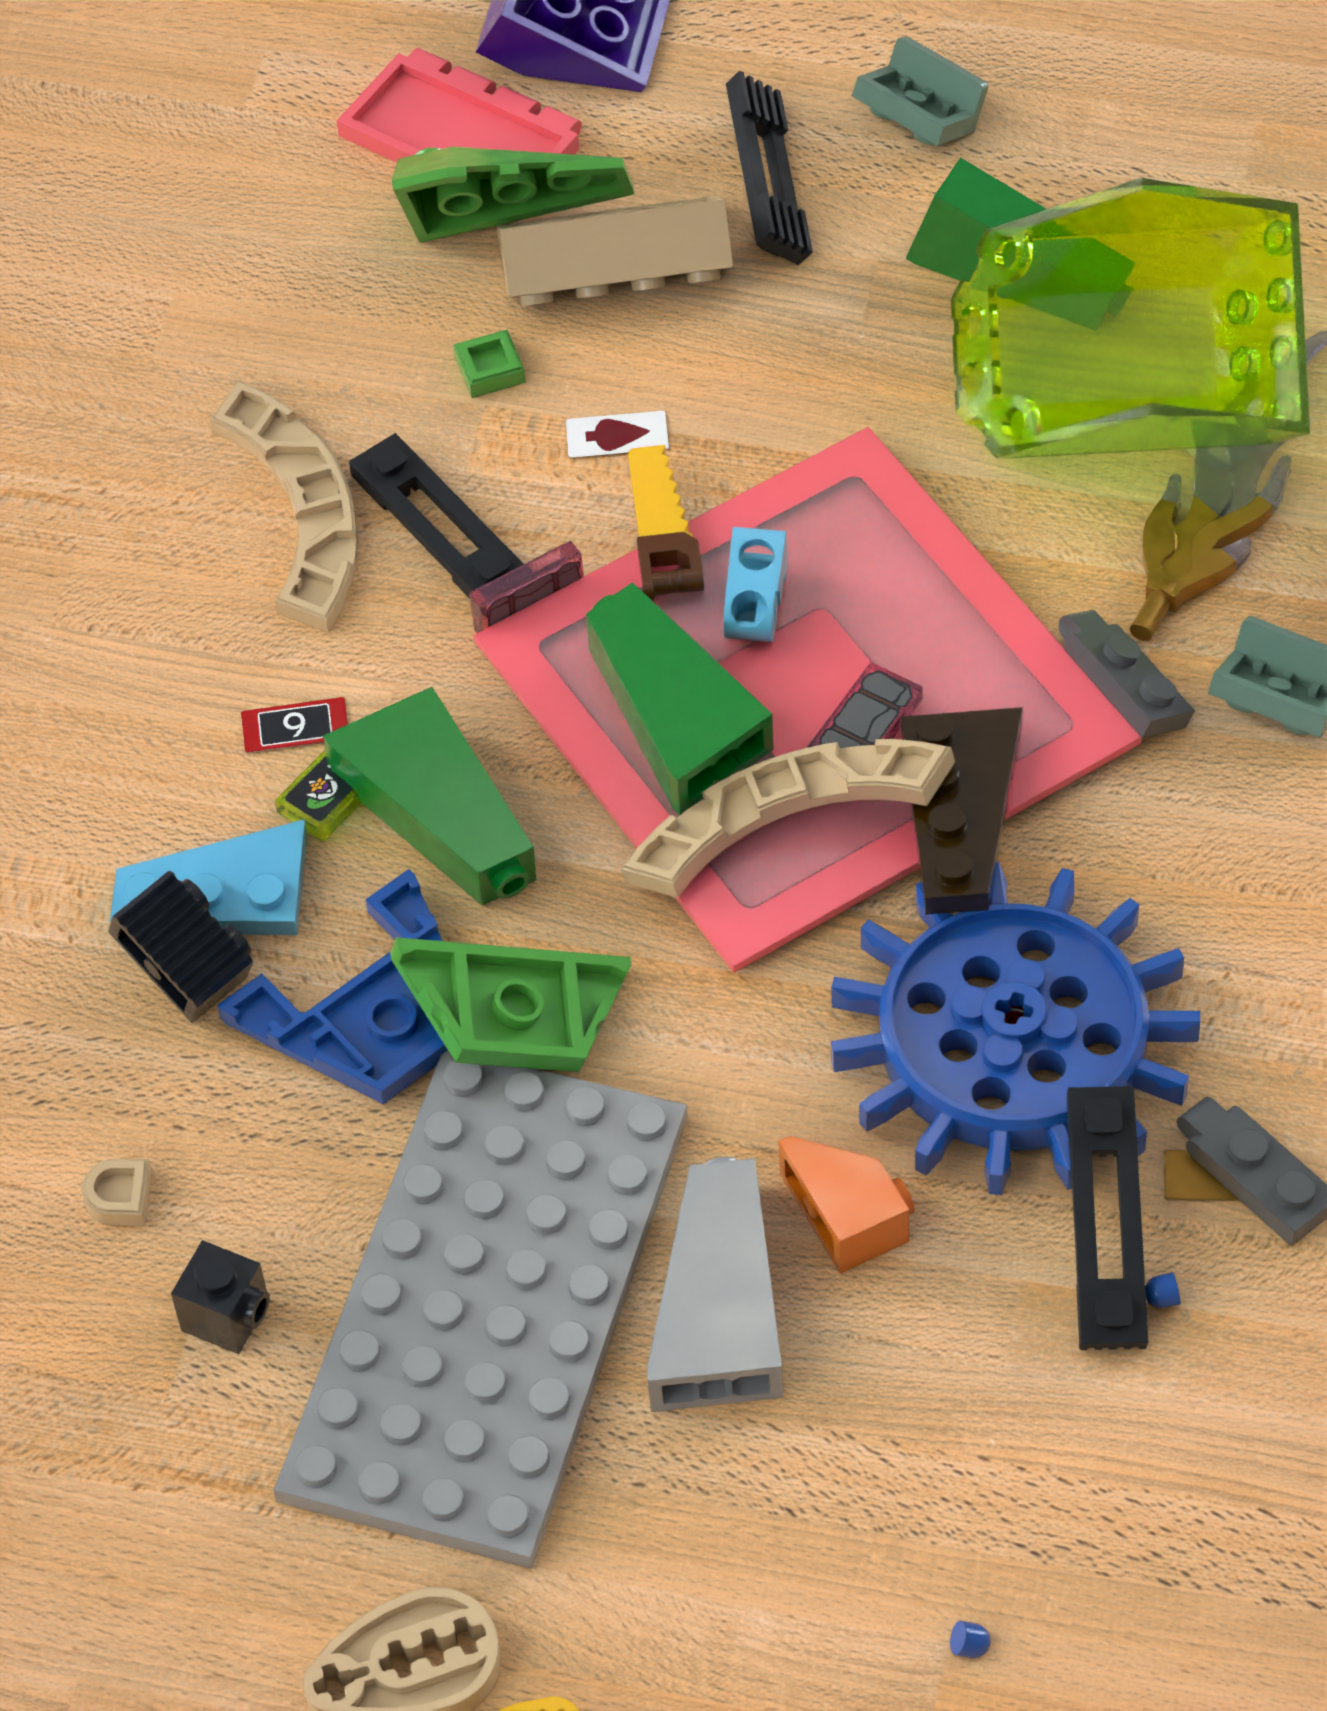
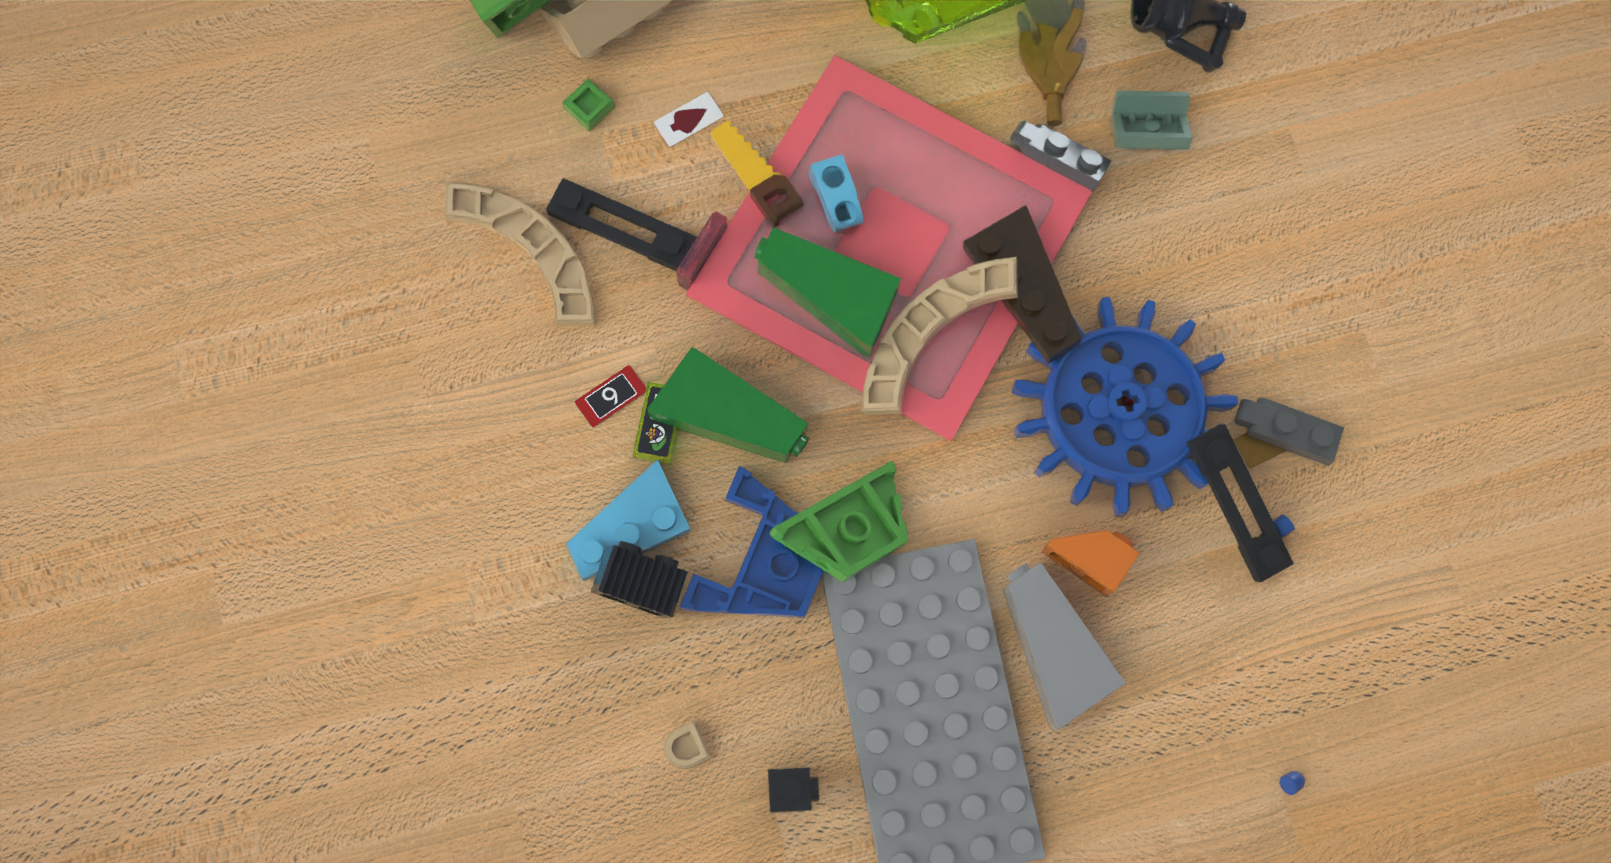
camera: 35 degrees left, 20 degrees up
(870, 709) = (942, 248): tile -> none

